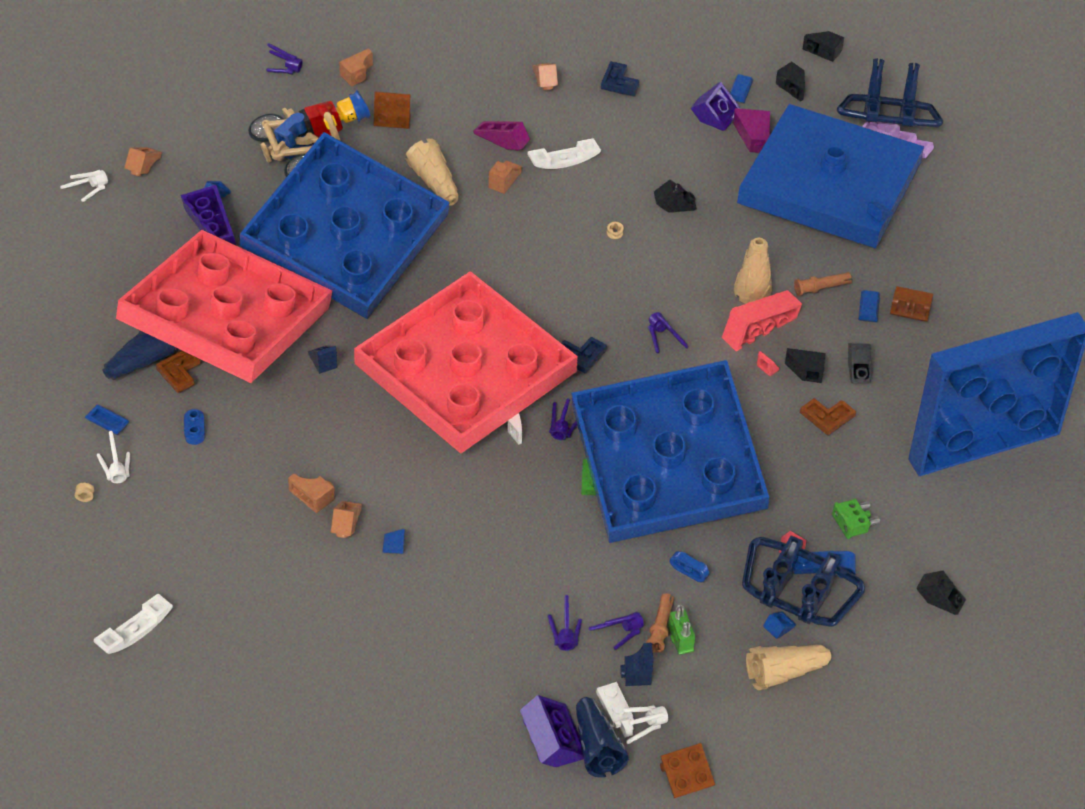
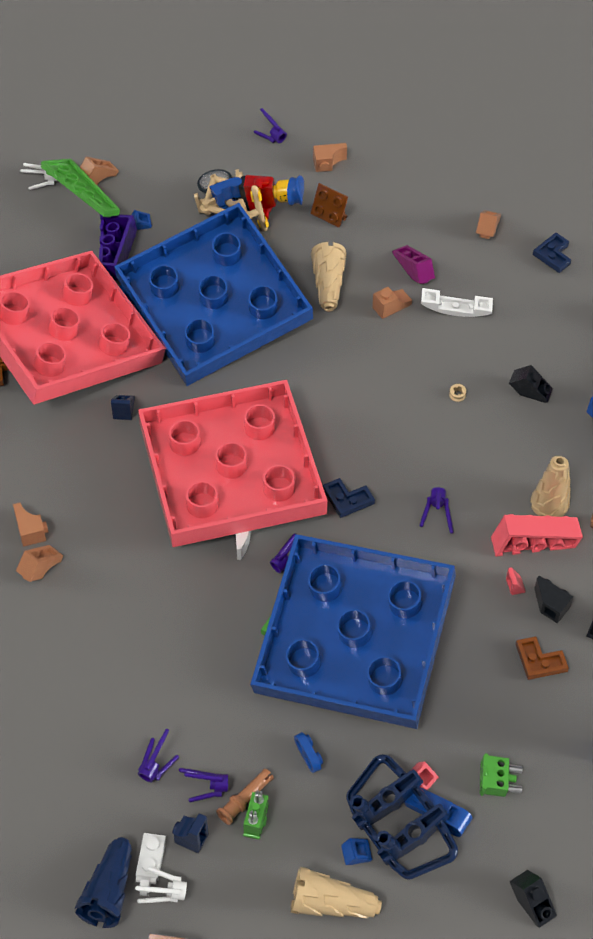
camera: 30 degrees right, 5 degrees up
(139, 174) = (79, 183): none -> bright green wing
(394, 542) = (66, 604): blue slope -> none
(552, 731) = (74, 856): dark purple slope -> none

